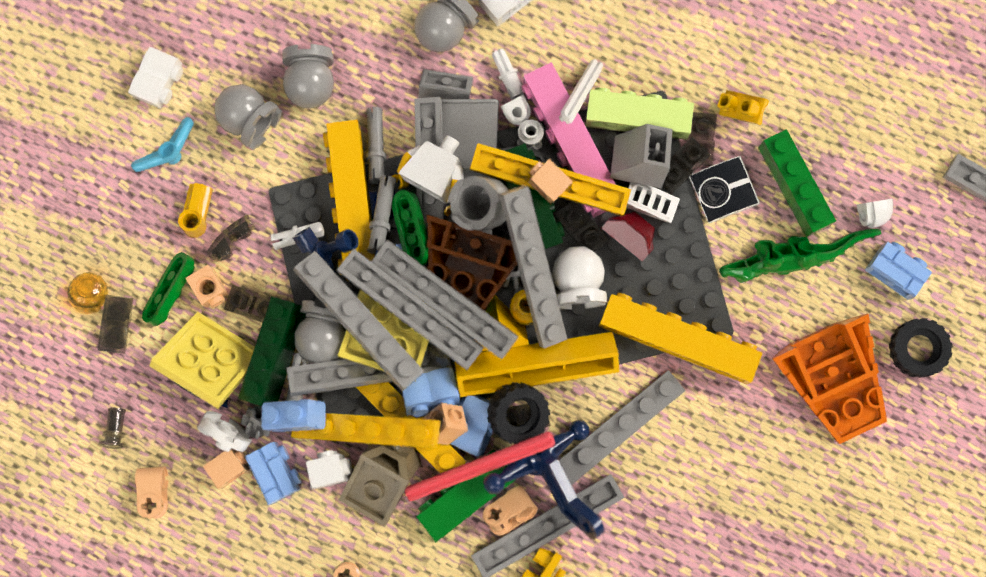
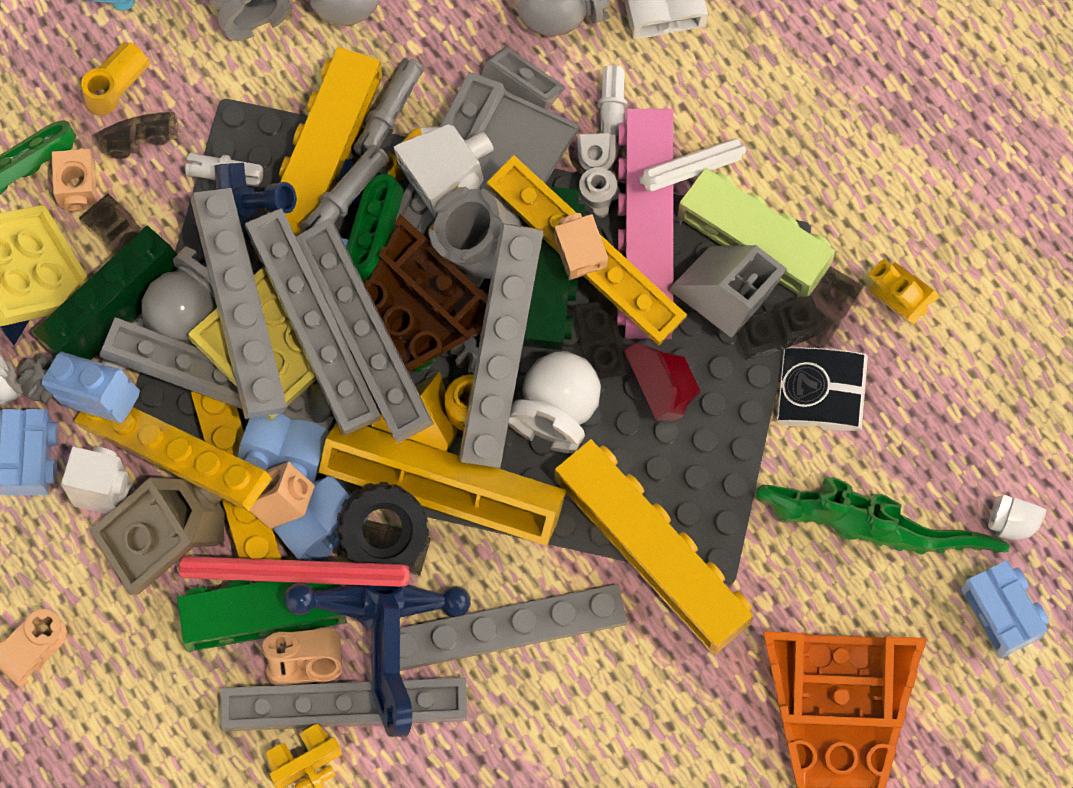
camera: 25 degrees right, 10 degrees down
(647, 210) = (701, 361): white slope -> none
(796, 183) = (923, 427): green brick -> none
(941, 348) = (988, 697): black tyre -> none

